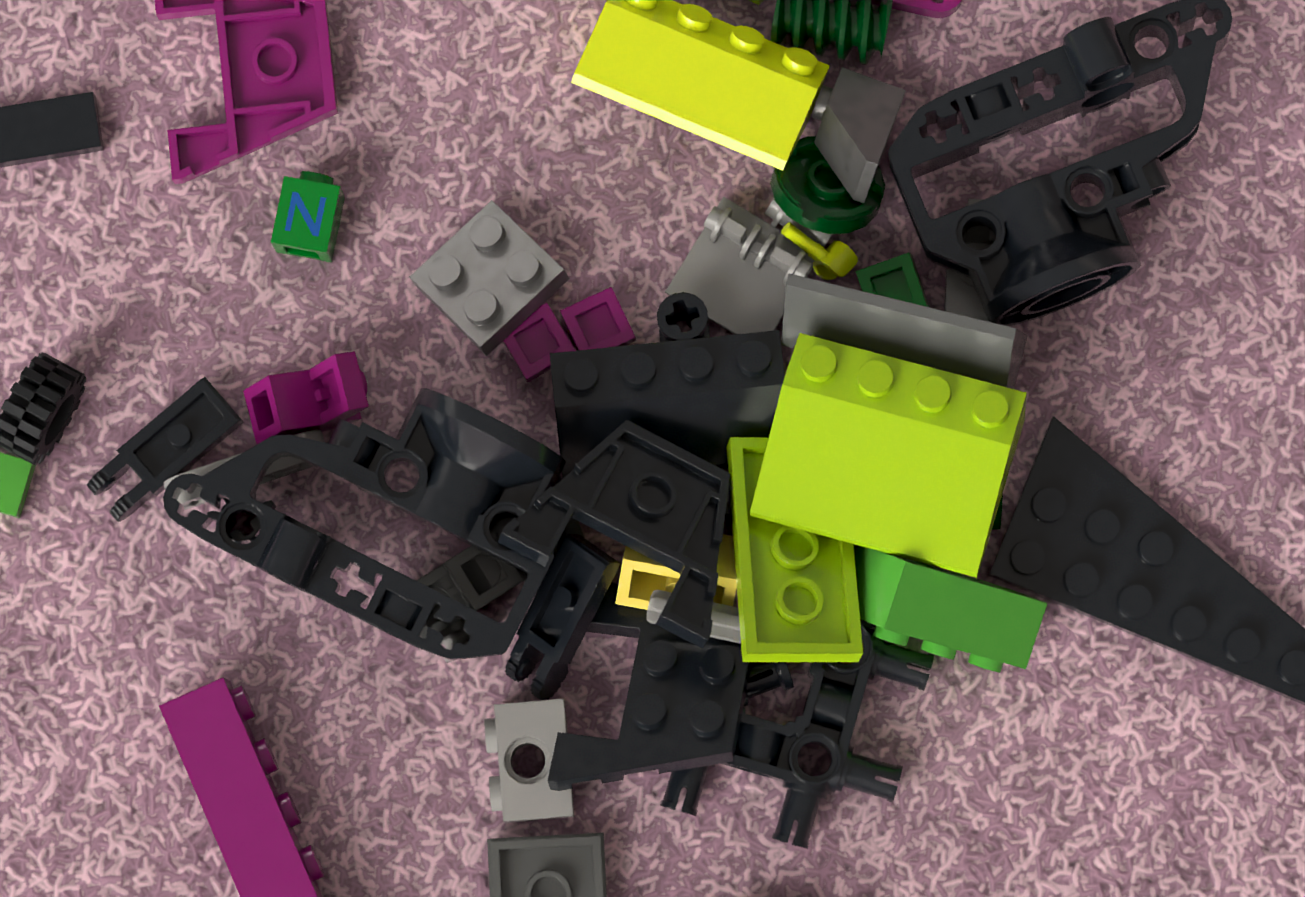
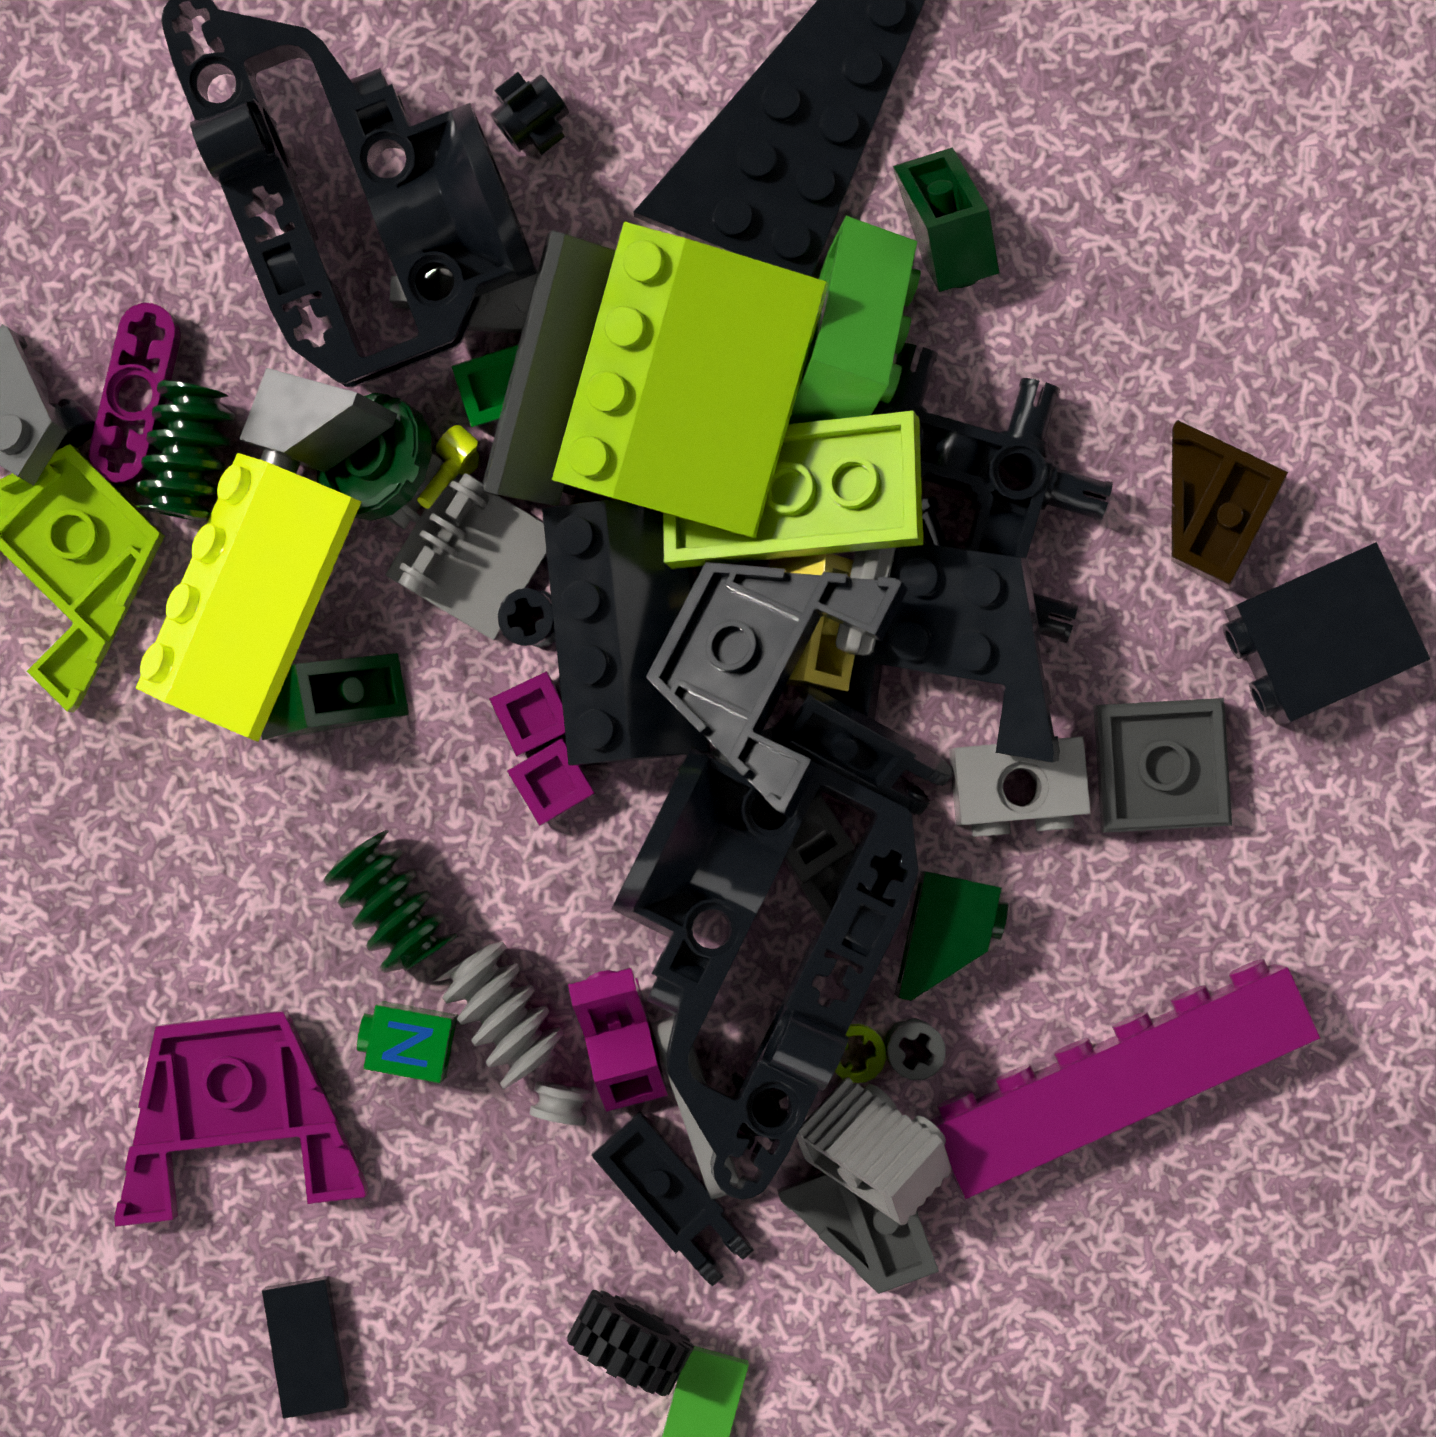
camera: 90 degrees left, 5 degrees up
(143, 622) = (866, 1238): none -> dark grey wing
(205, 624) = (875, 1149): none -> light grey brick
(251, 350) = (560, 1103): none -> light grey bush
(277, 671) = (917, 1068): none -> dark grey bush
(282, 629) = (873, 1062): none -> lime bush
(331, 297) = (501, 1013): none -> light grey piece
(401, 695) = (947, 930): none -> dark green slope
(428, 198) = (387, 905): none -> dark green piece
(489, 277) = (478, 835): flat silver plate -> none
(614, 155) = (337, 695): none -> dark green slope
(1049, 699) = (948, 220): none -> dark green slope
(1140, 322) = (529, 113): none -> black gear

